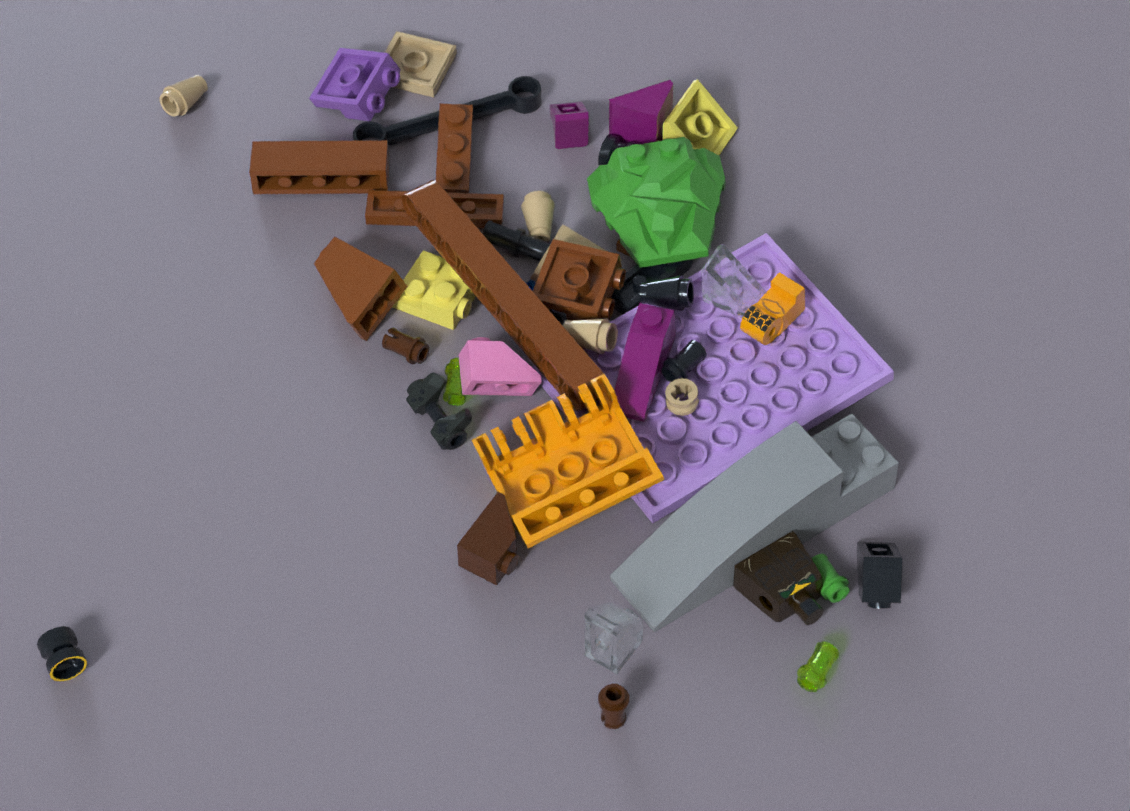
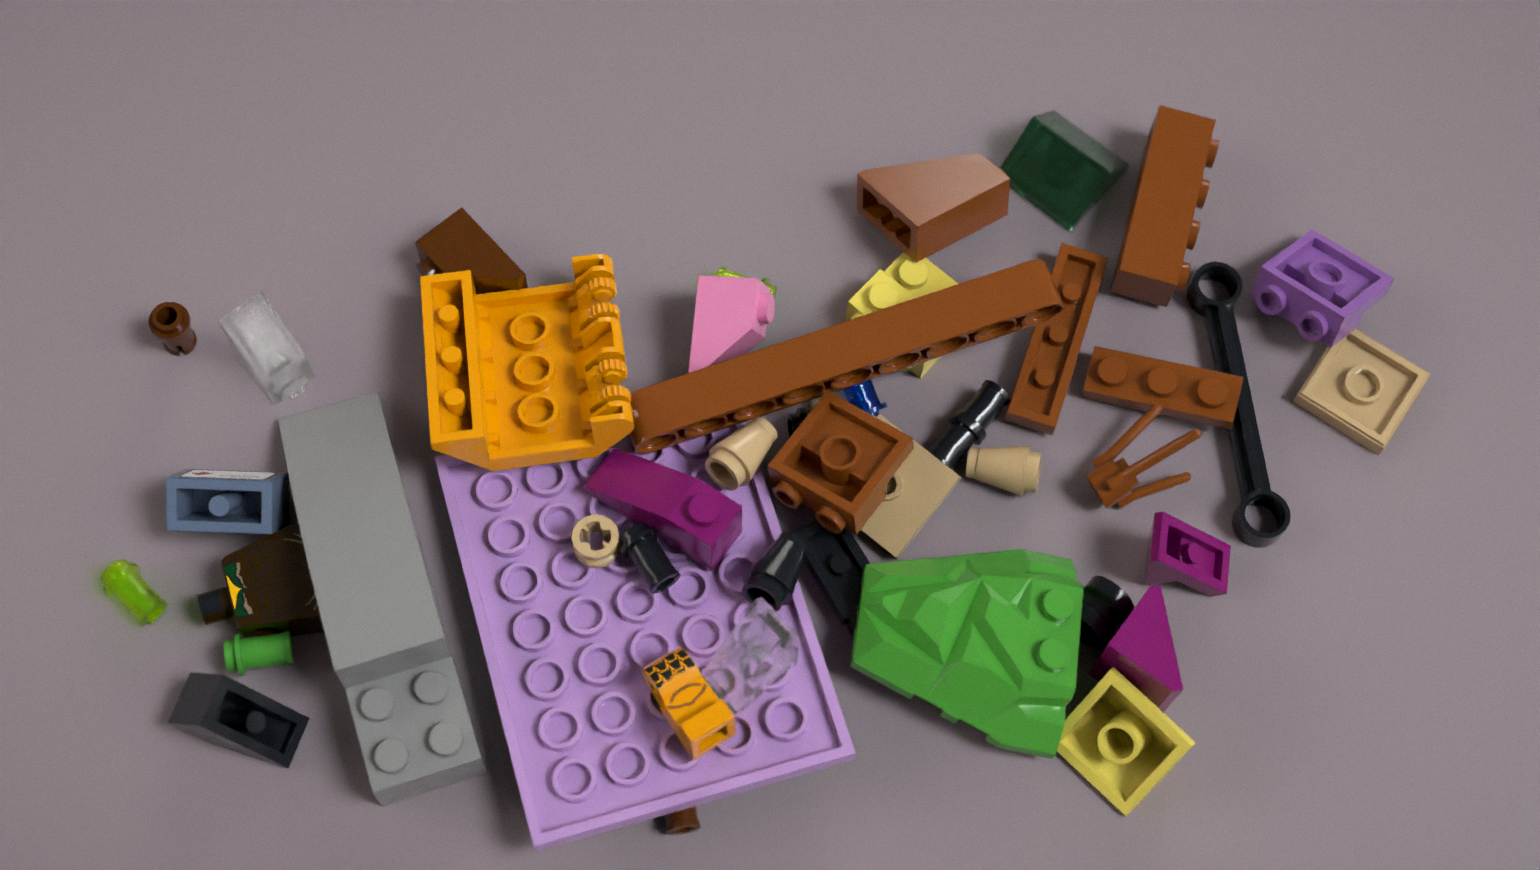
camera: 100 degrees right, 15 degrees up
(181, 96) = (1351, 78): tan cone -> none
(300, 230) = (1061, 168): none -> clear green slope
(411, 348) = (813, 251): reddish brown pin -> none
(423, 399) = (725, 243): pearl dark grey piece -> none
(528, 159) = (1114, 480): none -> dark orange plant
(735, 618) = (227, 501): none -> sand blue brick

